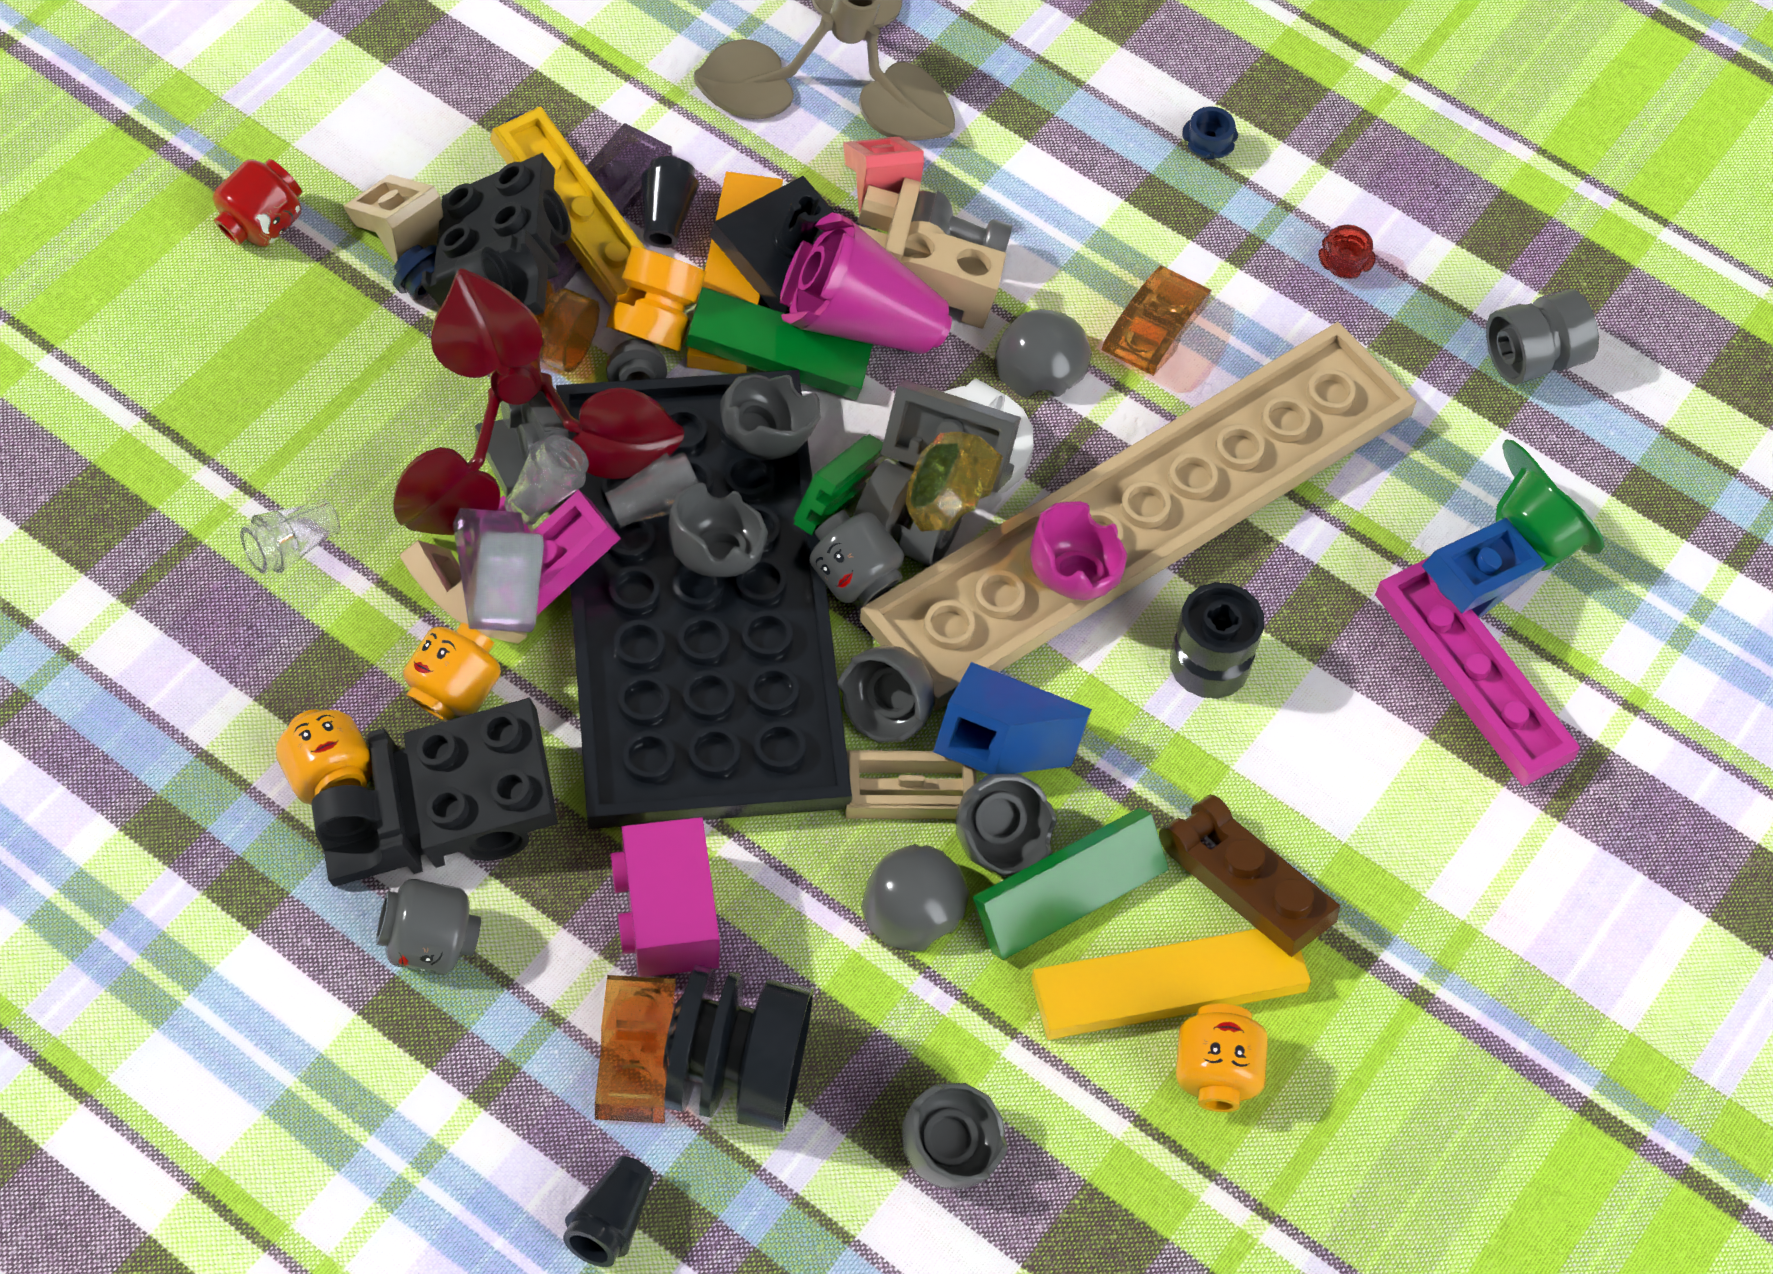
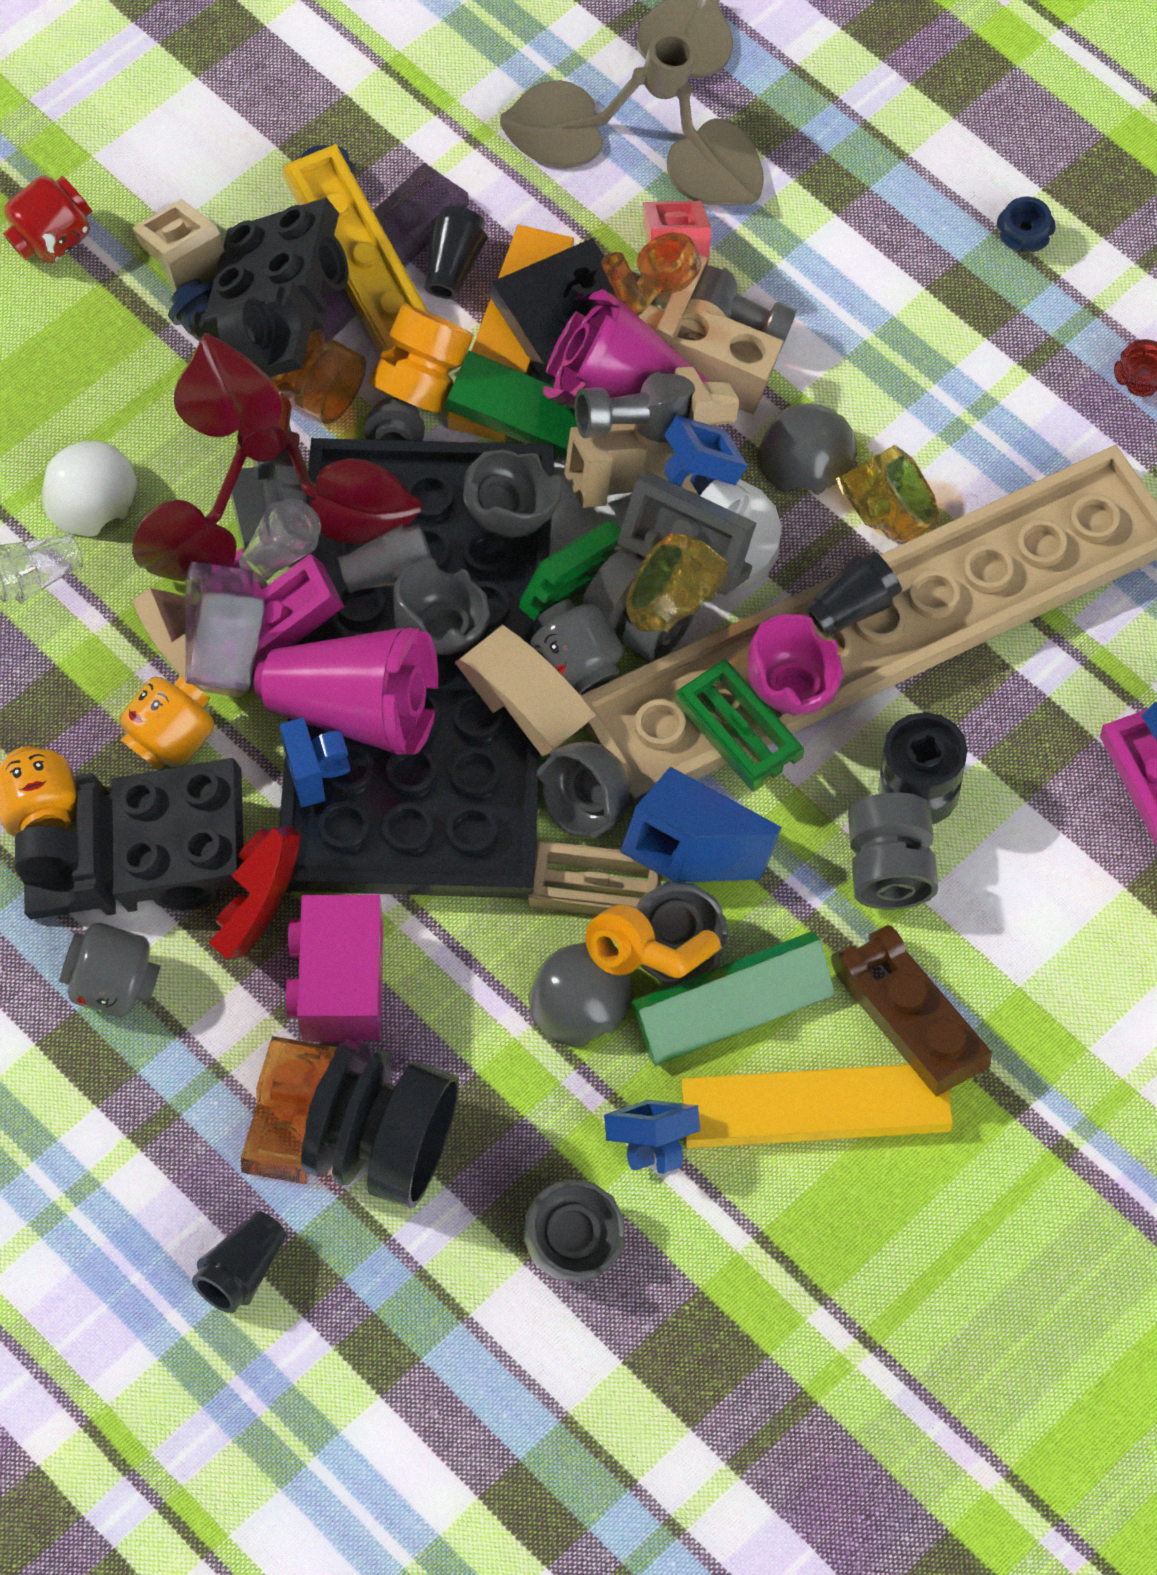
camera: 15 degrees right, 5 degrees up
(334, 454) = (88, 487): none -> white hair
(580, 808) = (266, 876): none -> red slope
(609, 692) = (312, 759): none -> blue tile
(643, 614) = (356, 685): none -> dark pink cone
(827, 606) = (533, 692): none -> tan slope
(881, 190) = (666, 266): none -> clear orange plate
(915, 345) = (625, 434): none -> tan hips
(954, 357) = (702, 451): none -> blue tile
(975, 838) = (639, 947): none -> light orange plate
(1016, 1019) = (652, 1129): none -> blue tile
(1022, 622) = (769, 763): none -> green tile
(1123, 478) = (854, 594): none -> black cone
(1133, 388) = (891, 495): none -> clear yellow rock
(1156, 319) = (934, 418): clear orange slope -> none
(1202, 722) = (892, 851): none -> dark grey wheel
(1222, 1057) = (847, 1186): light orange head -> none

